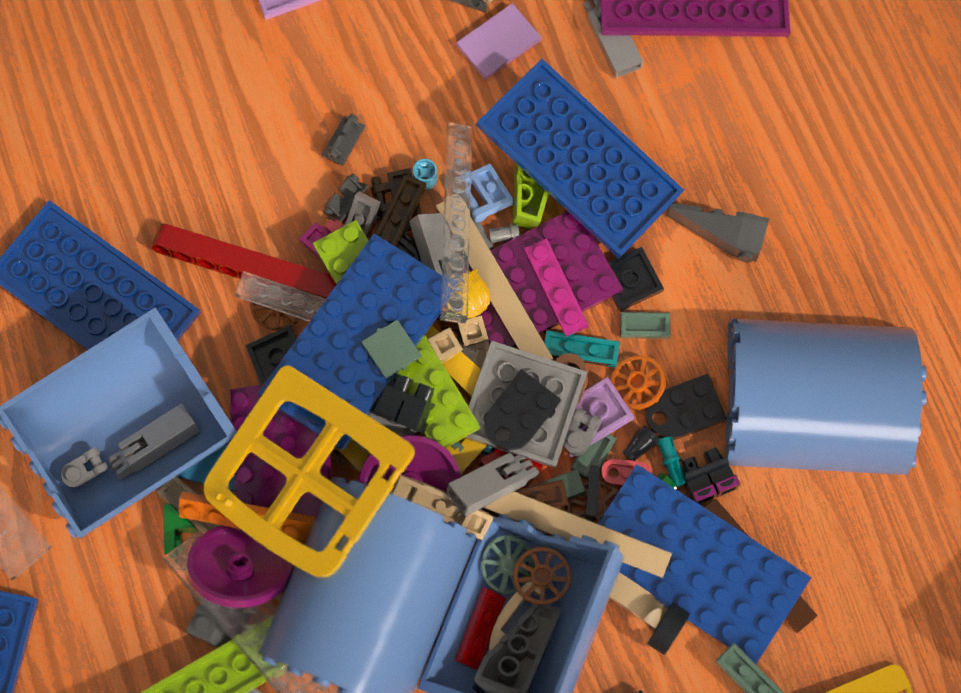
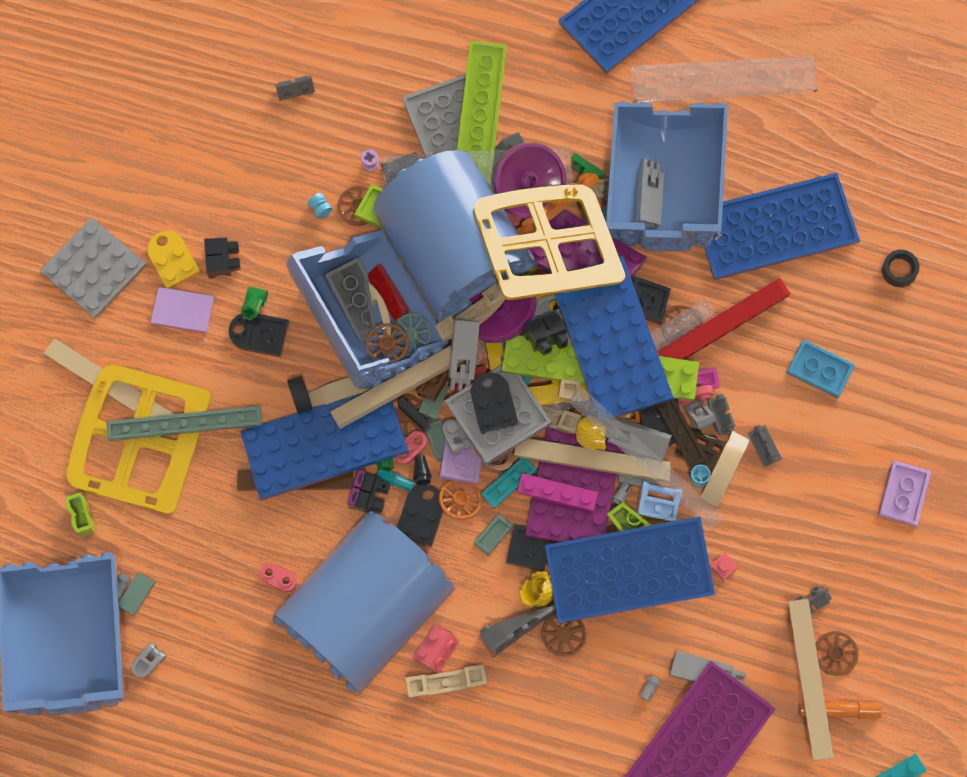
camera: 130 degrees right, 0 degrees up
(43, 128) = (907, 256): none -> black tyre
(75, 472) = (664, 140): light grey plate -> none
(219, 146) = (820, 369): none -> dark azure tile
(391, 349) = (587, 349): sand green piece -> none
(395, 157) = (725, 469): none -> tan slope
(495, 91) = (723, 566): none -> coral plate
(498, 41) = (759, 596): lavender tile -> none
(669, 235) = (537, 591): none -> yellow hair
(670, 72) = (649, 688): none -> light grey pin
(689, 184) = (563, 635): none -> dark orange wheel
(804, 290) = (436, 649): none -> coral bracket
(826, 257) = (446, 682): none -> tan slope
(865, 499) = (277, 577): none -> coral plate

